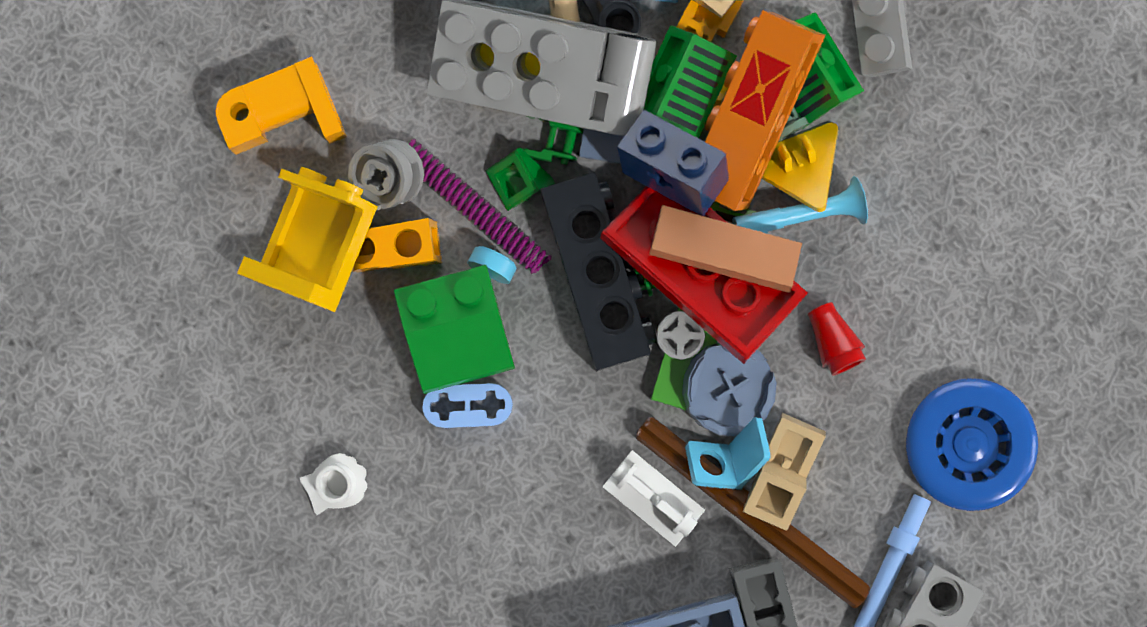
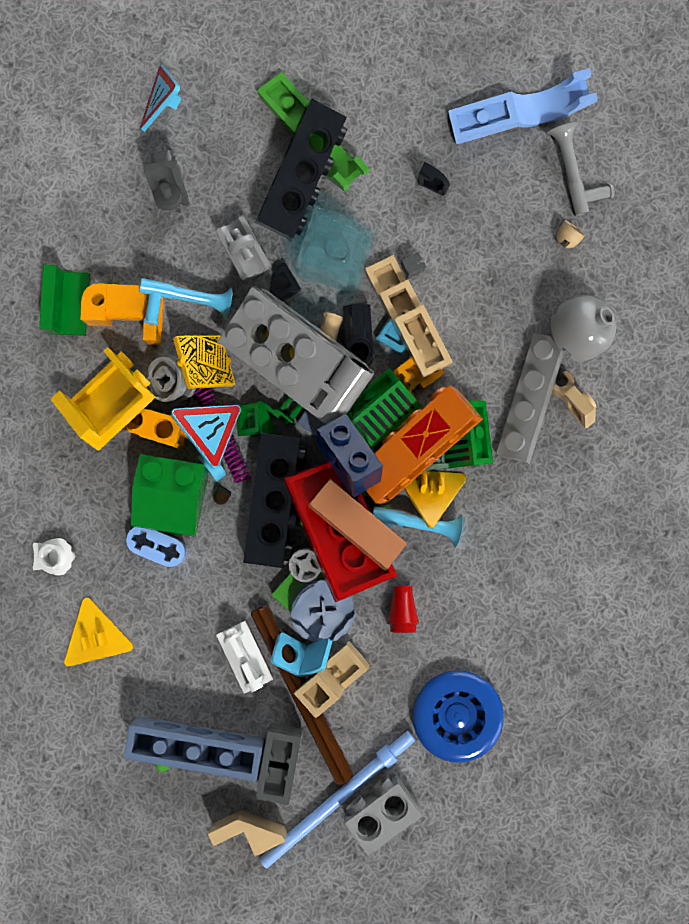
camera: 30 degrees right, 0 degrees up
(191, 136) = (62, 301): none -> green panel
(314, 62) = (157, 290): none -> medium azure piece
(419, 129) = (203, 362): none -> yellow piece
(440, 565) = (94, 636): none -> yellow piece
(467, 216) = (208, 429): none -> piece
(522, 299) = (221, 495): none -> dark brown piece

